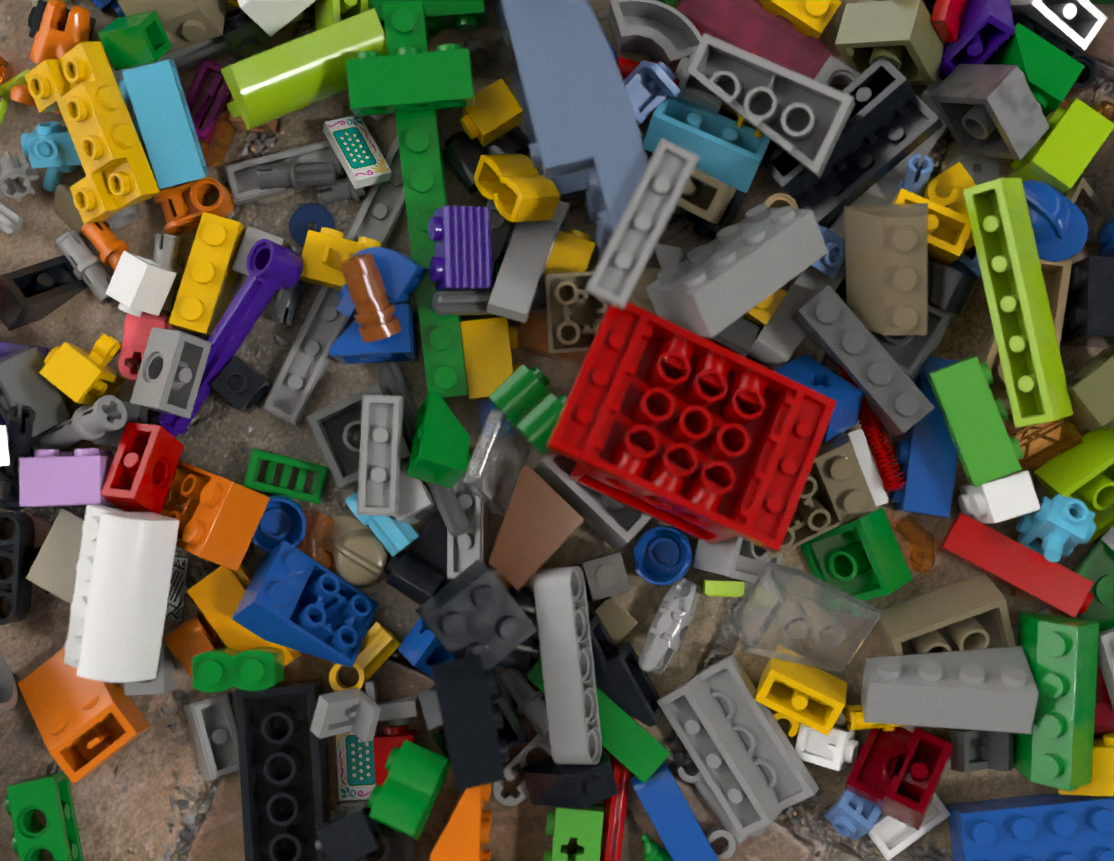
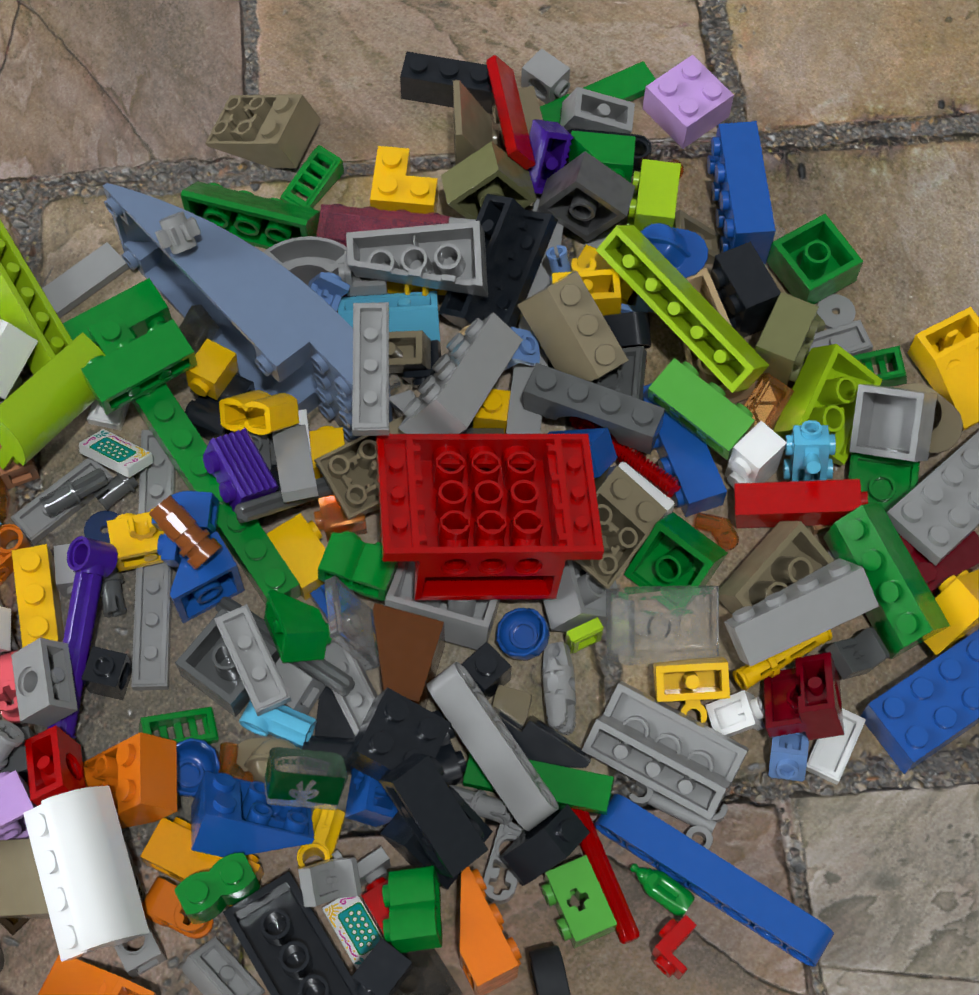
camera: 30 degrees left, 20 degrees down
(386, 590) = (304, 778): none -> piece

